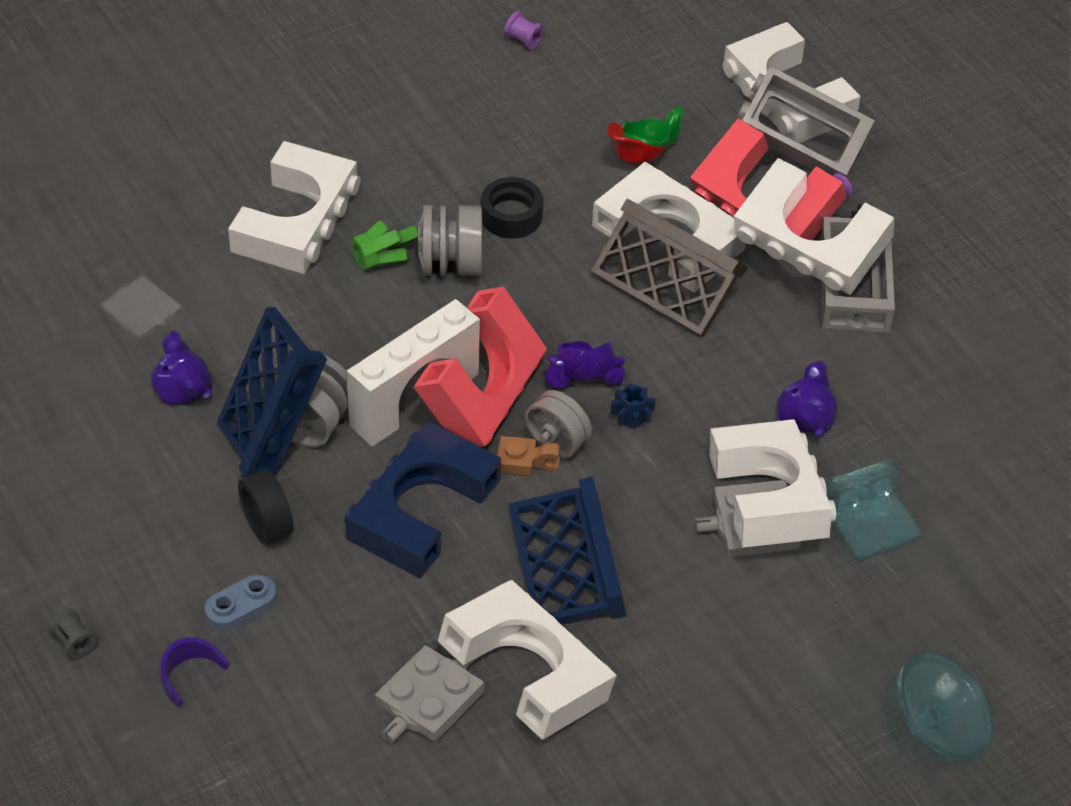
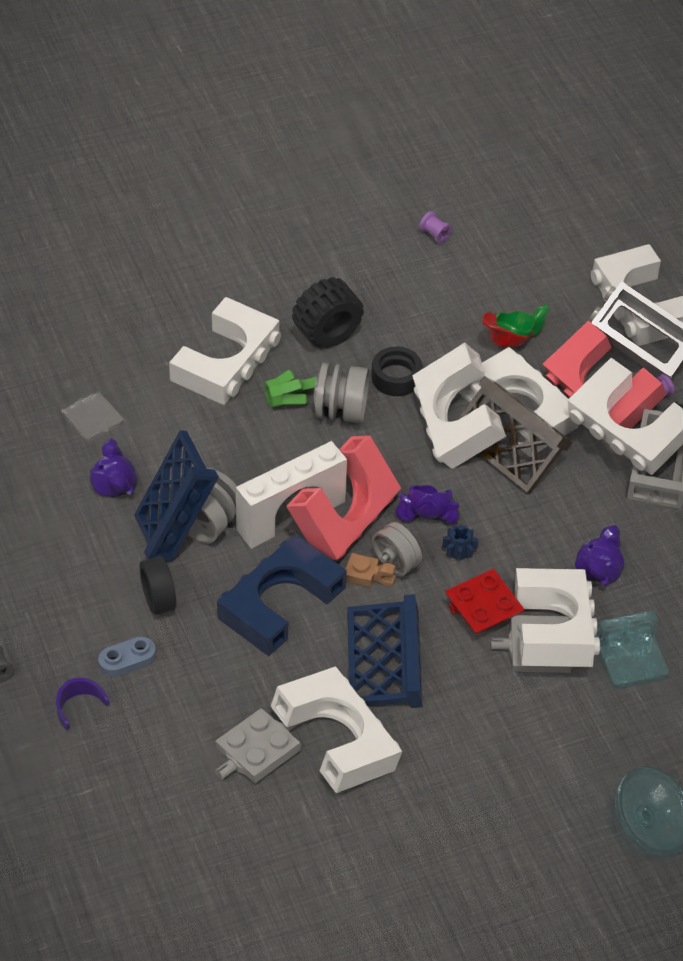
camera: 10 degrees right, 0 degrees up
(415, 145) = (327, 312): none -> black tyre
(566, 222) = (436, 387): none -> white arch
(677, 474) = (483, 601): none -> red hinge

